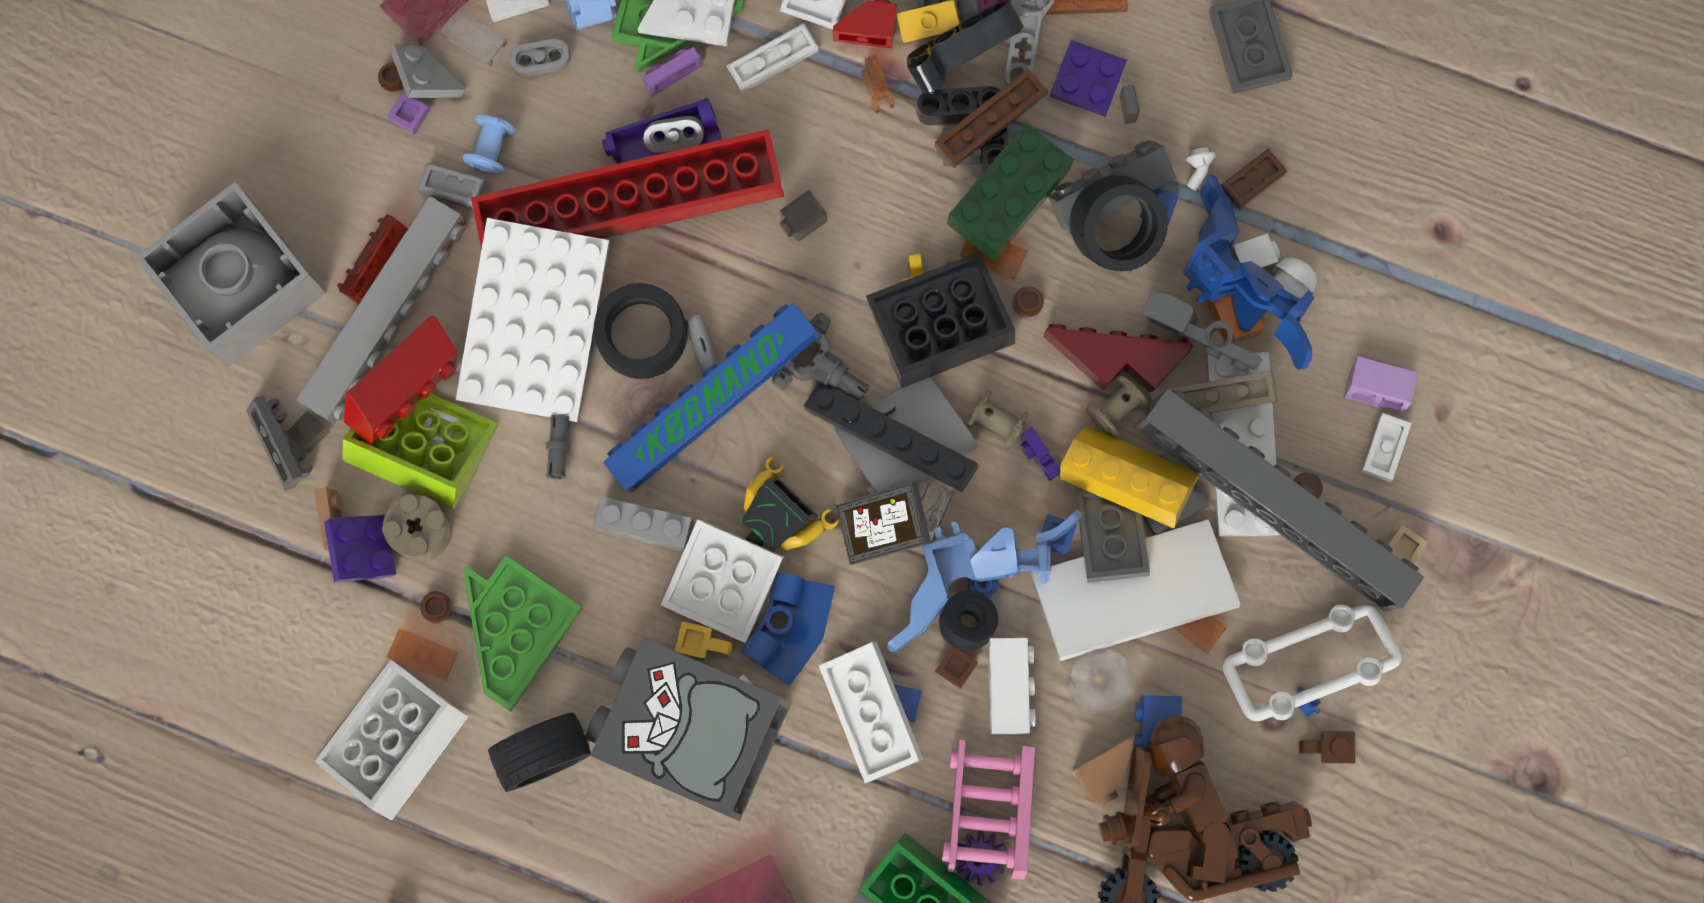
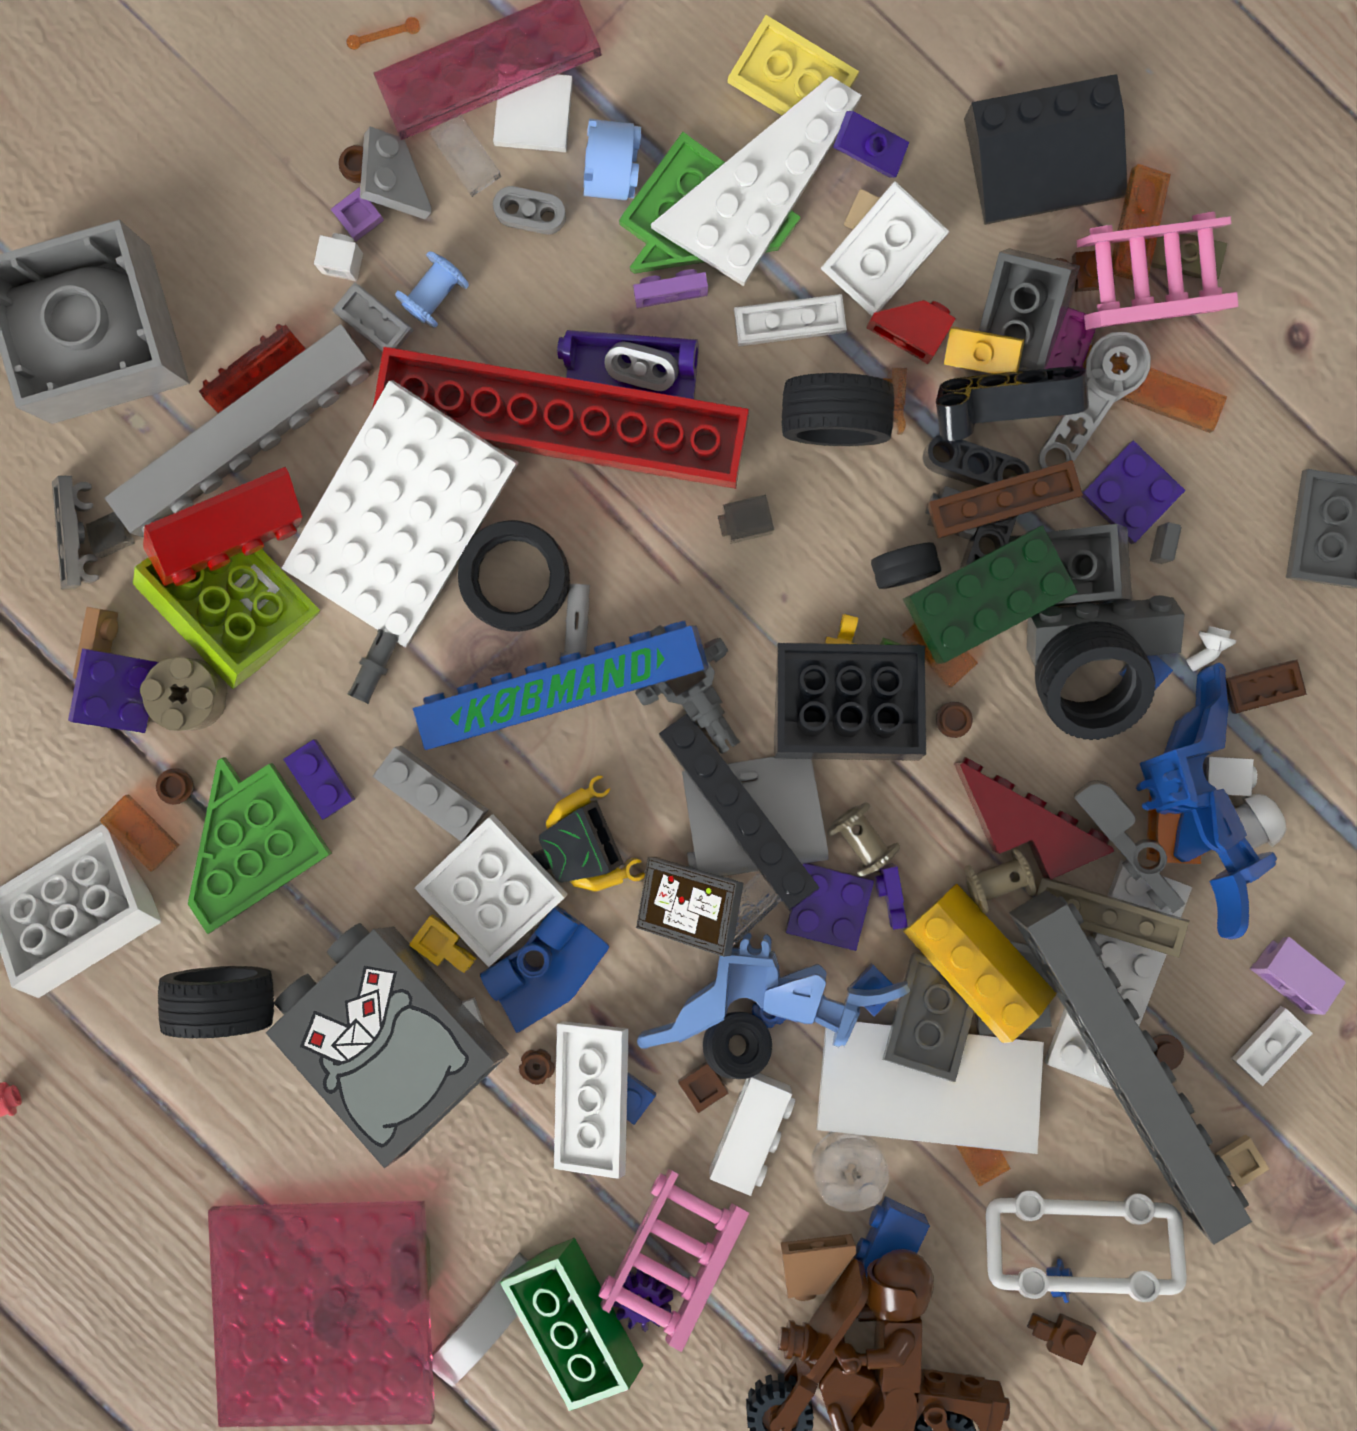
camera: 20 degrees right, 10 degrees up
(407, 149) = (338, 256): none -> white plate
(549, 553) = (319, 779): none -> dark purple plate
(808, 705) = (533, 1075): none -> reddish brown plate
(836, 104) = (838, 409): none -> black tyre
(938, 199) = (906, 565): none -> black tyre
(997, 486) = (834, 911): none -> dark purple plate
(1083, 137) = (1095, 562): none -> dark grey slope

